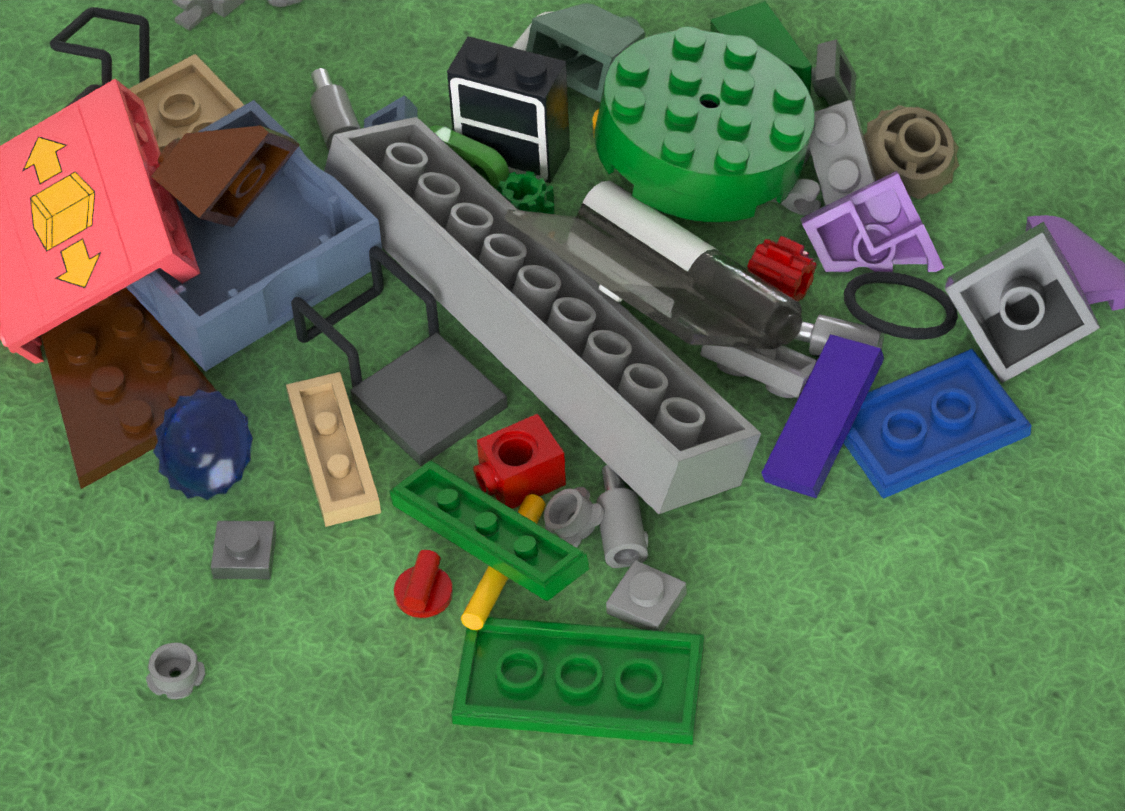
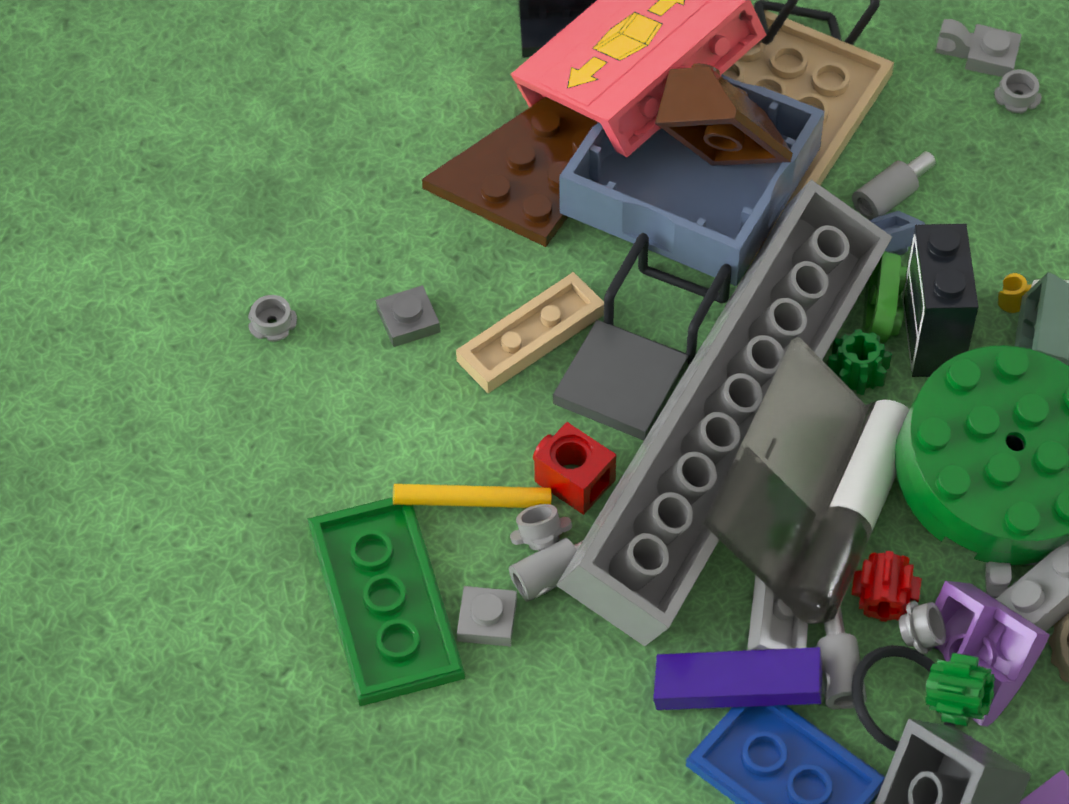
camera: 65 degrees right, 5 degrees up
(203, 444) = (483, 243): clear blue piece -> none
(423, 588) = (421, 452): red plate -> none
(490, 530) = (489, 471): green tile -> none
(836, 261) = (922, 626): none -> light grey plate
(920, 252) = (960, 689): none -> green gear

